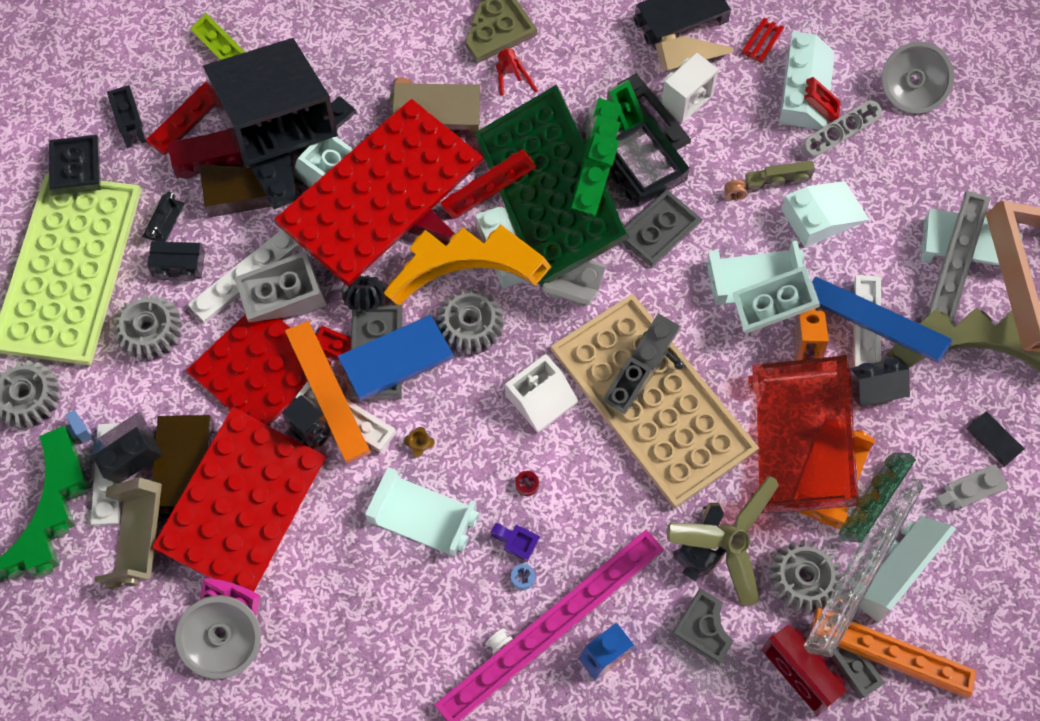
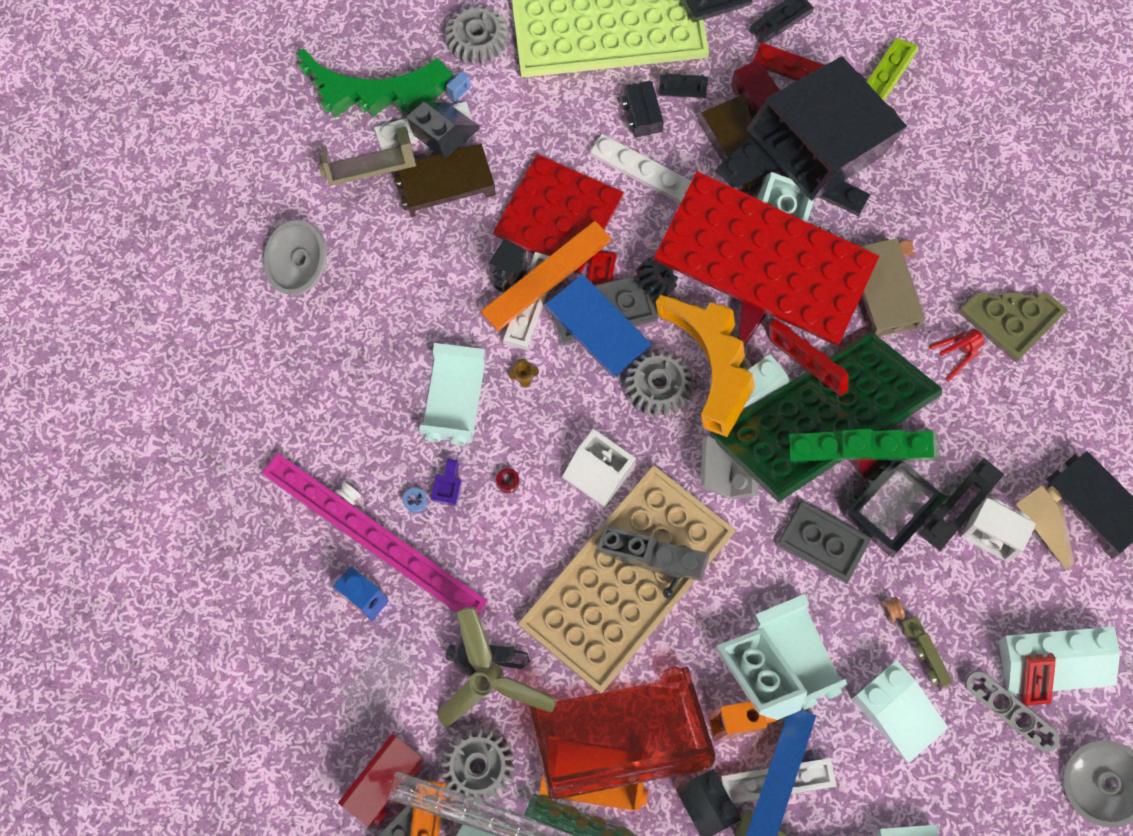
camera: 75 degrees right, 5 degrees up
(143, 312) = (569, 94): light grey gear -> none
(215, 587) = (336, 257): dark pink slope -> none
(239, 501) = (421, 236): red plate -> none
(281, 289) = (636, 205): light grey slope -> none
(630, 111) = (954, 471): green slope -> none
(702, 628) = (402, 675): dark grey tile -> none
(770, 26) = (1123, 607): red tile -> none

